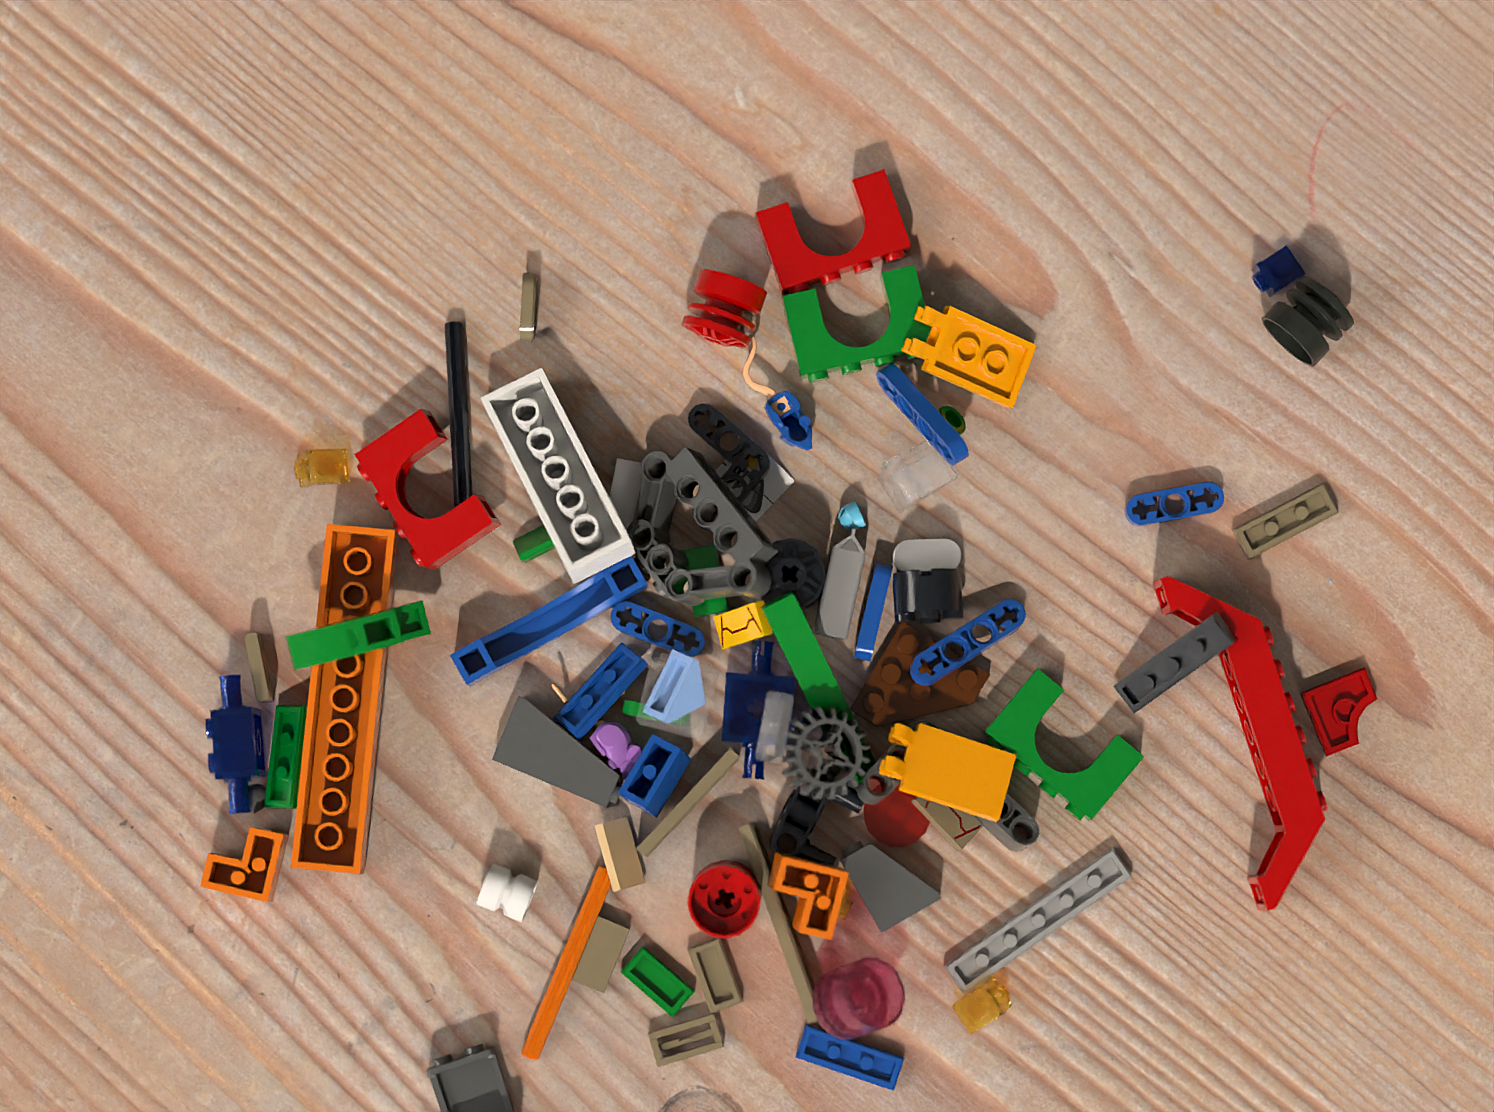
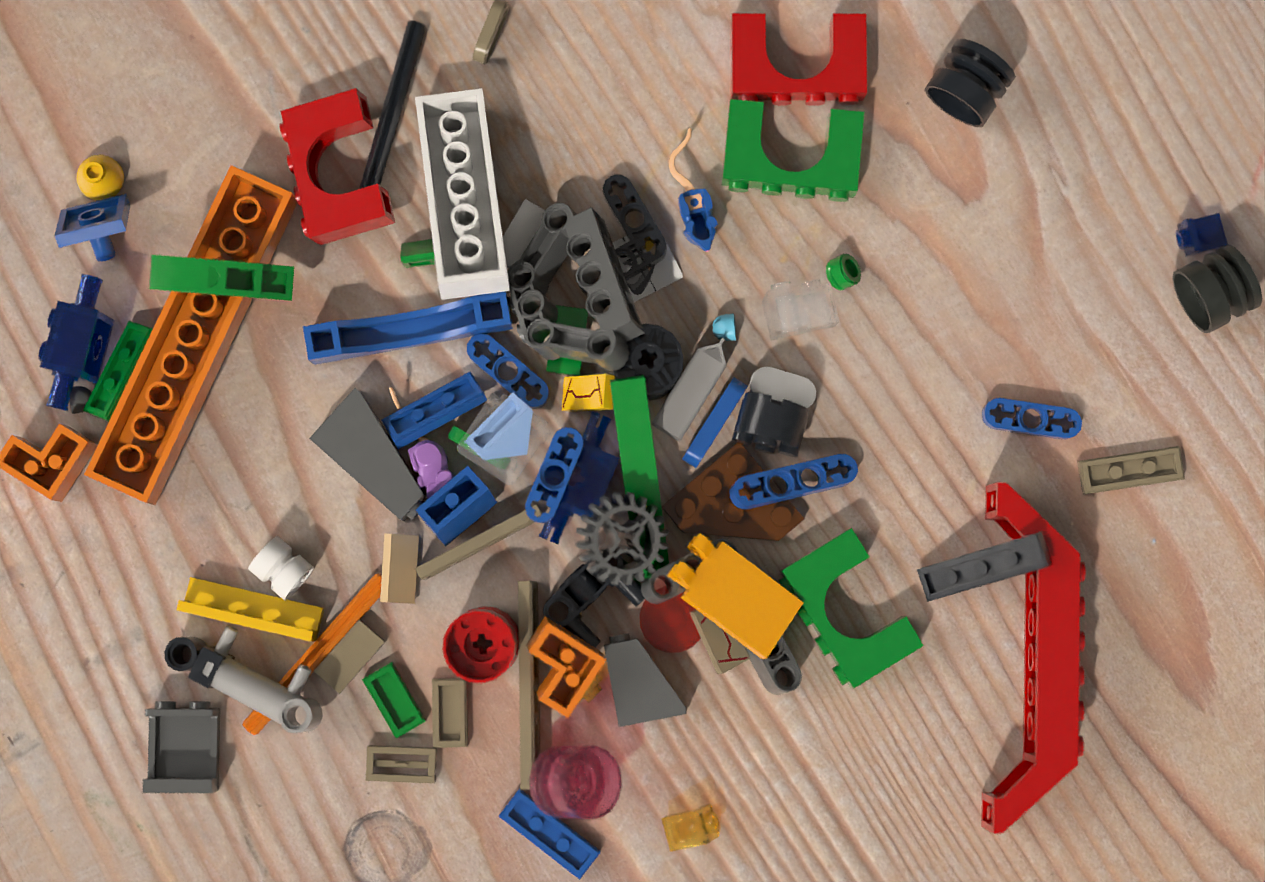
camera: 15 degrees right, 0 degrees up
(199, 576) = (100, 177): none -> yellow brick
(213, 624) = (94, 223): none -> blue tile
(258, 667) = (124, 279): dark tan tile -> none
(322, 467) = (248, 114): clear yellow bracket -> none
(482, 1010) = (217, 669): none -> light grey piece
(492, 941) = (252, 609): none -> yellow fence
(724, 308) = (676, 87): red wheel -> none
(748, 689) = (572, 454): none -> blue beam
(774, 727) = (582, 497): clear slope -> none
(922, 414) = (824, 253): blue beam -> none
(972, 354) = (889, 213): light orange tile -> none
(1008, 195) = (970, 82): none -> black wheel
(1037, 921) = (770, 766): light grey tile -> none
(1337, 708) = (1120, 662): red tile -> none

